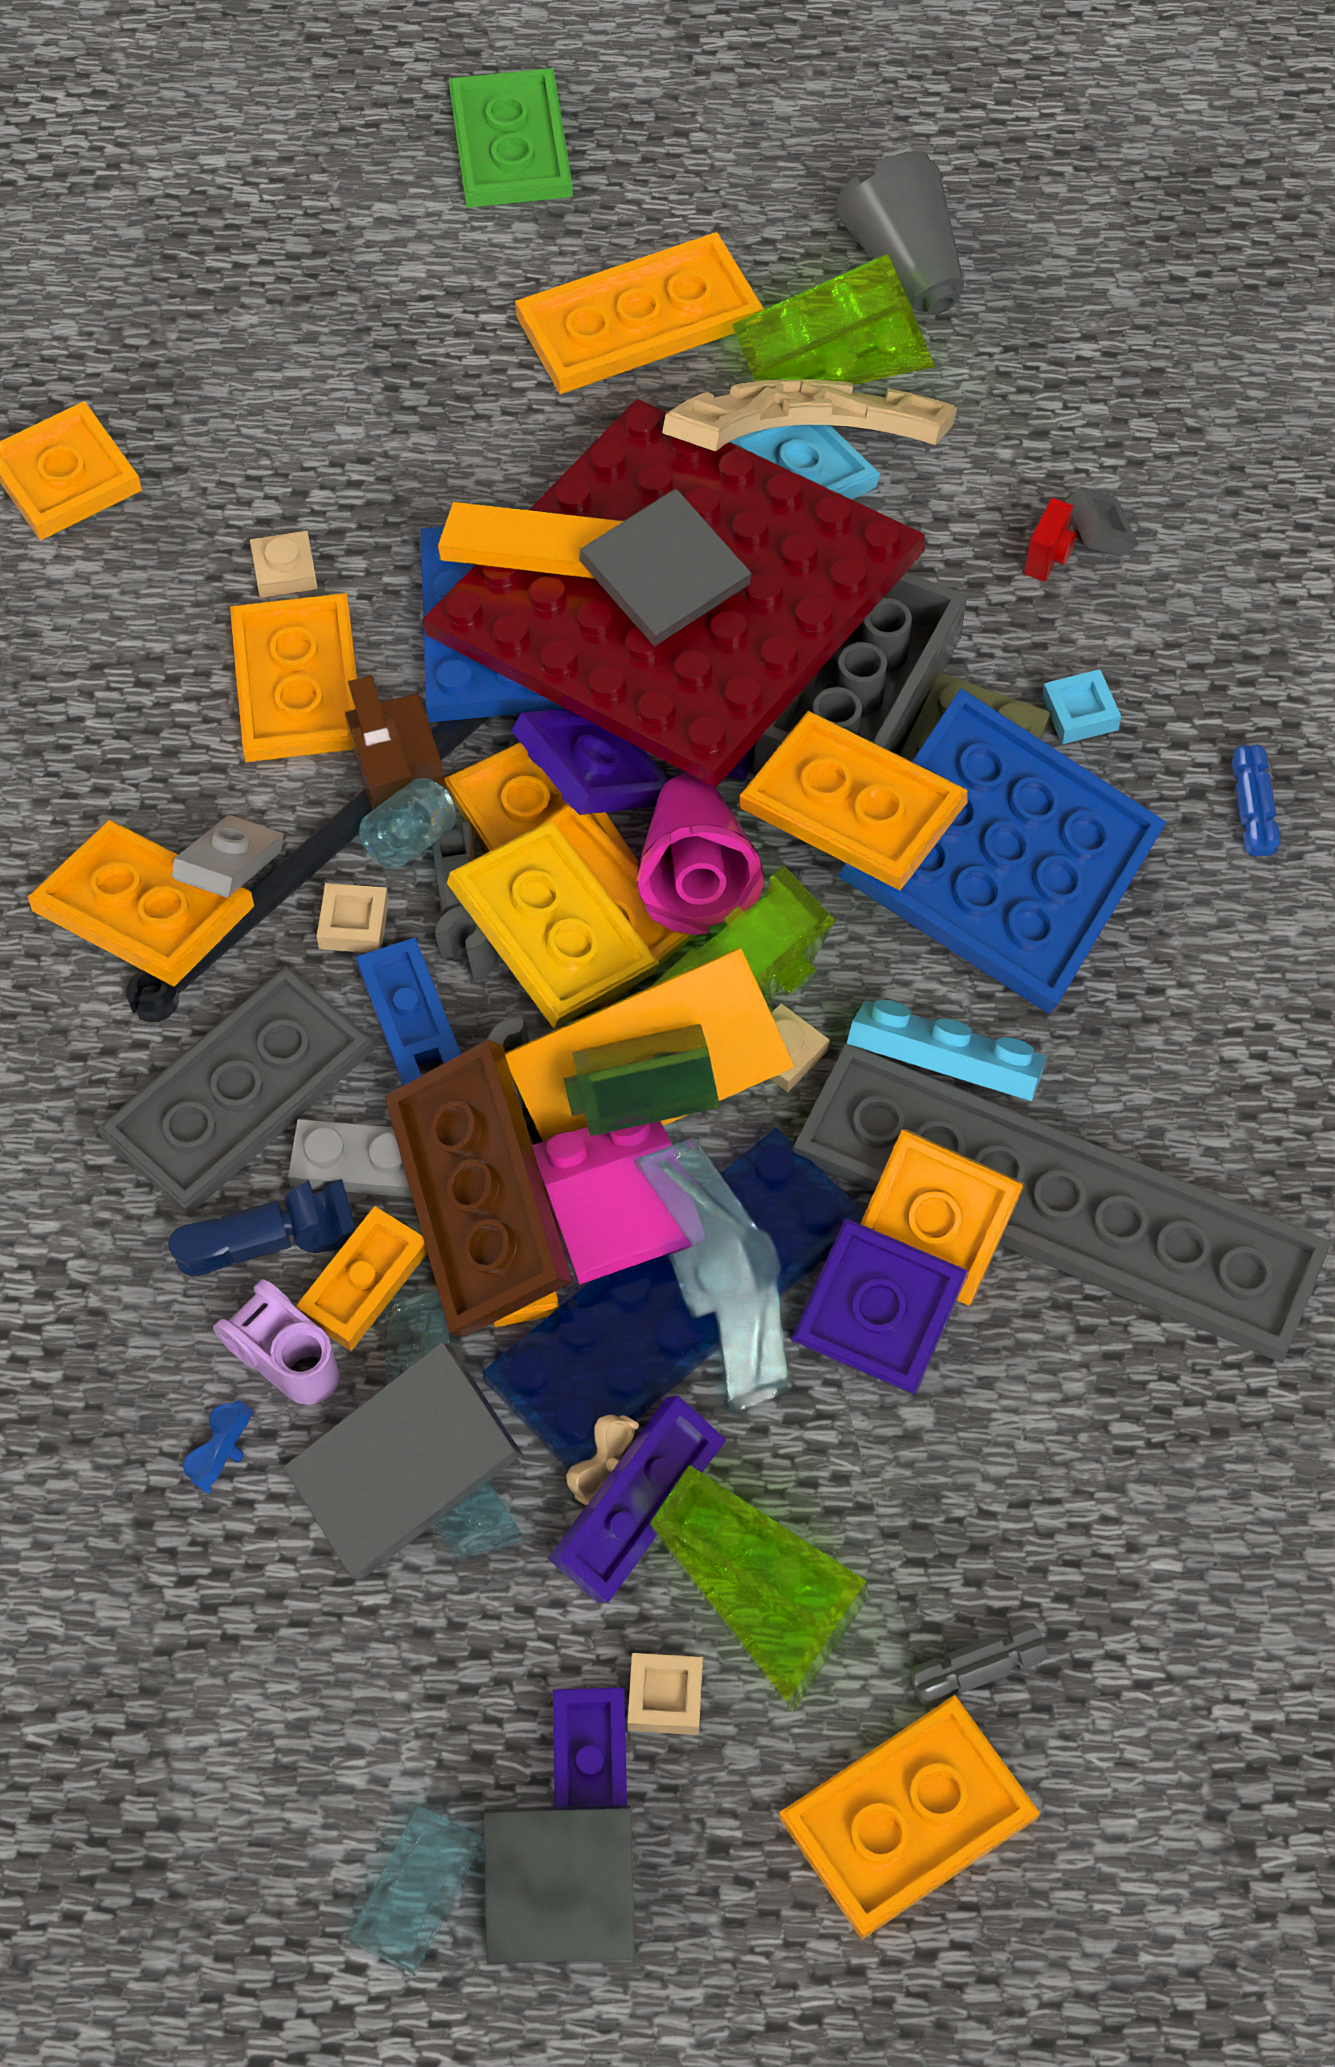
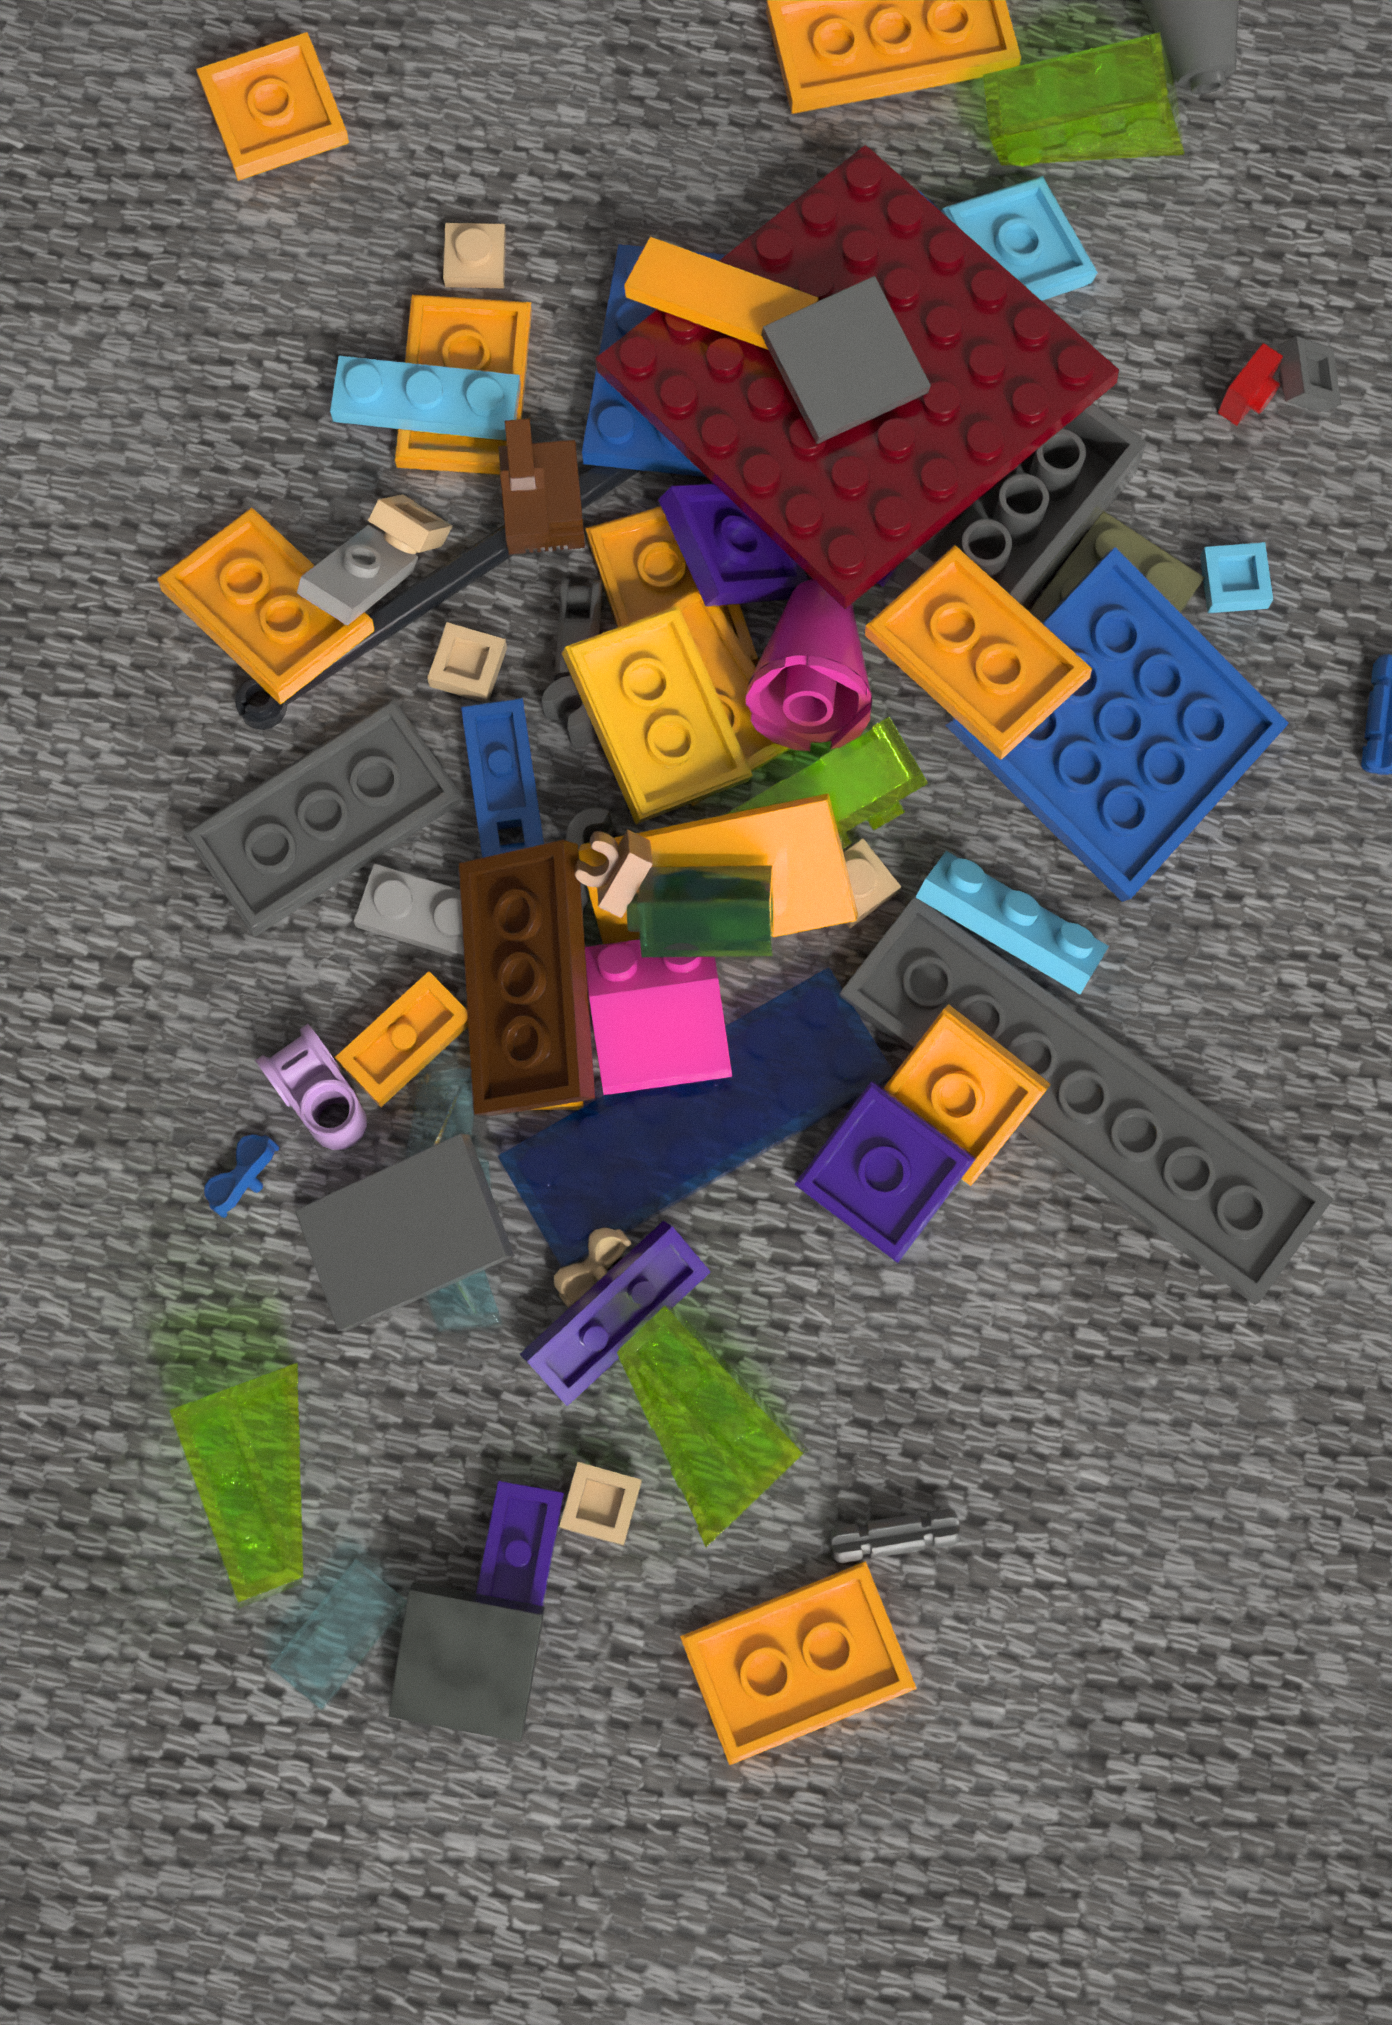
camera: 10 degrees right, 15 degrees up
(261, 690) = (424, 397): none -> medium azure plate
(269, 806) = (409, 524): none -> tan plate
(287, 1742) = (247, 1480): none -> clear neon green wedge
(316, 1222) = (370, 968): dark blue piece -> none
(408, 823) = (538, 577): clear light blue plate -> none
(552, 1061) = (621, 873): none -> tile
(724, 1270) = (744, 1111): clear light blue plate -> none
(781, 403) = (1010, 176): tan tile -> none

